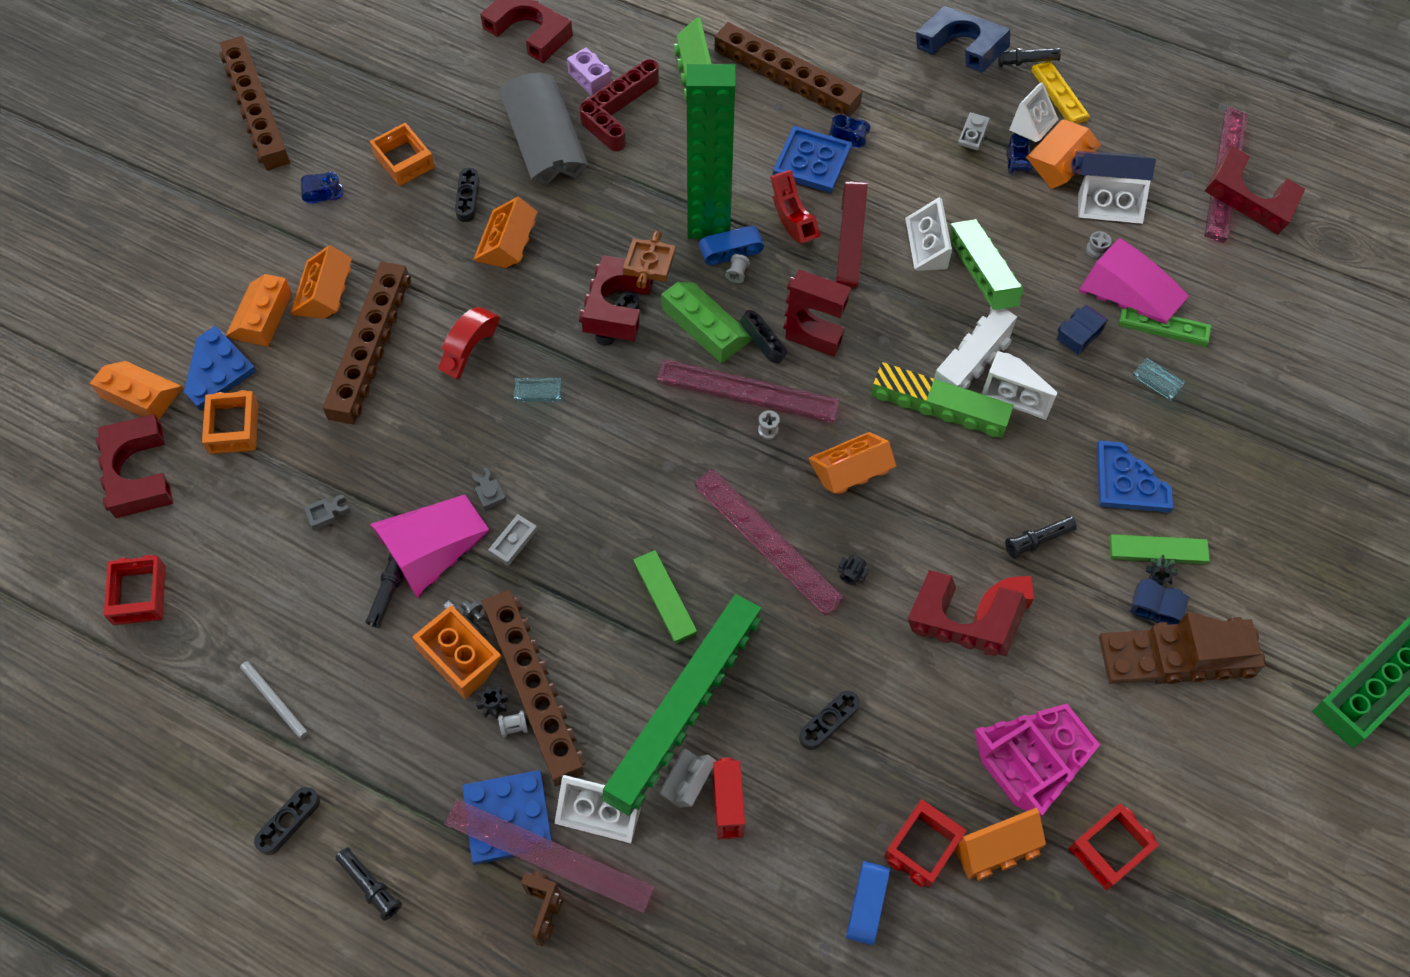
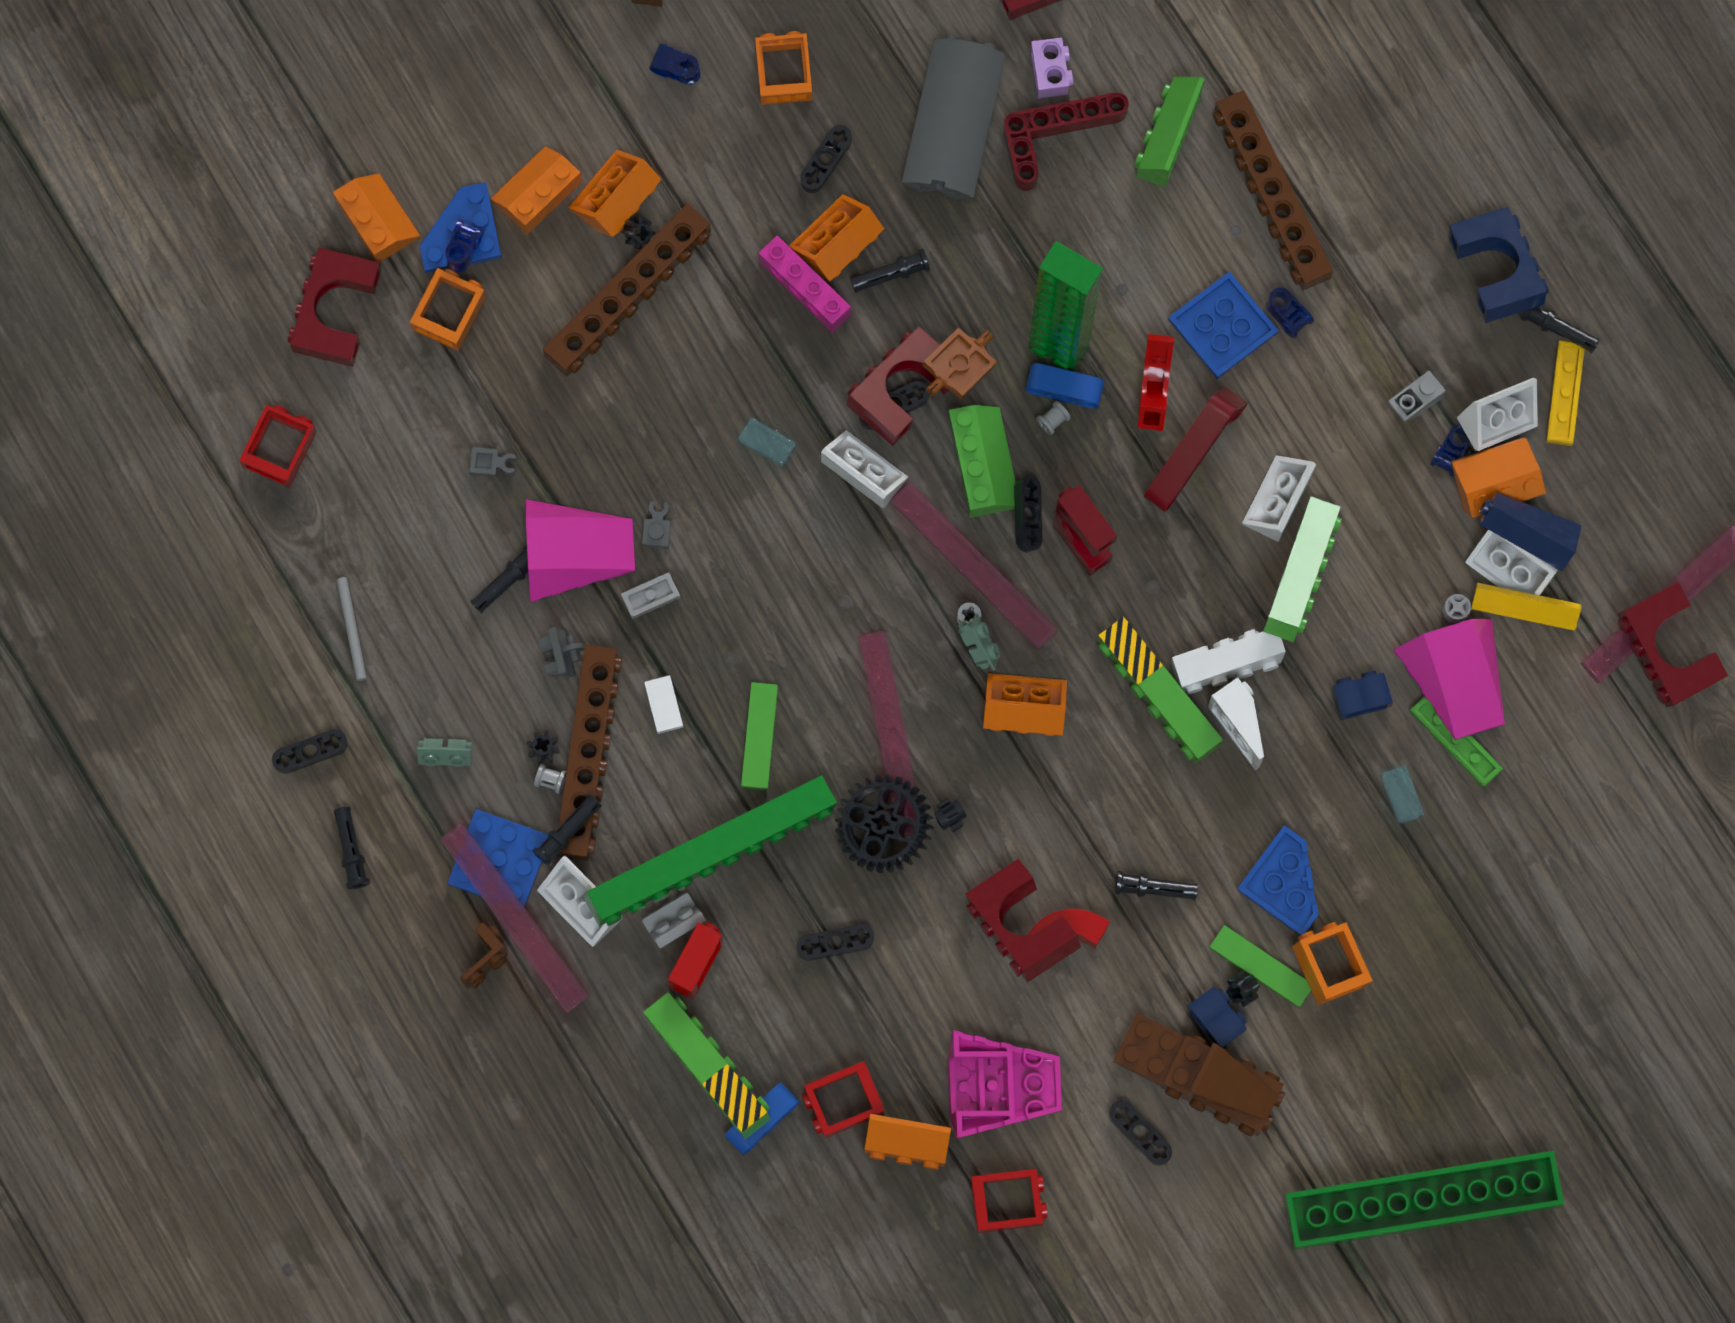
camera: 30 degrees right, 15 degrees up
(218, 370) = (464, 241): none -> clear blue piece
(353, 299) = (631, 228): none -> black gear
(400, 759) = (432, 753): none -> sand green hinge
(457, 651) = (537, 681): orange slope -> none
(463, 337) = (730, 342): red arch -> none
(501, 272) = (804, 284): none -> dark pink brick
(551, 764) = (559, 839): none -> black pin
(565, 230) = (901, 268): none -> black pin
(573, 615) = (663, 704): none -> white tile
(621, 371) = (863, 468): none -> white slope
(795, 883) = (707, 1065): none -> bright green brick
(797, 441) = (985, 652): none -> sand green hinge
(819, 602) = (876, 814): none -> black gear
(1143, 219) = (1526, 606): none -> yellow tile
(1190, 724) = (1160, 1142): none -> black beam
(1203, 527) = (1312, 972): none -> orange window

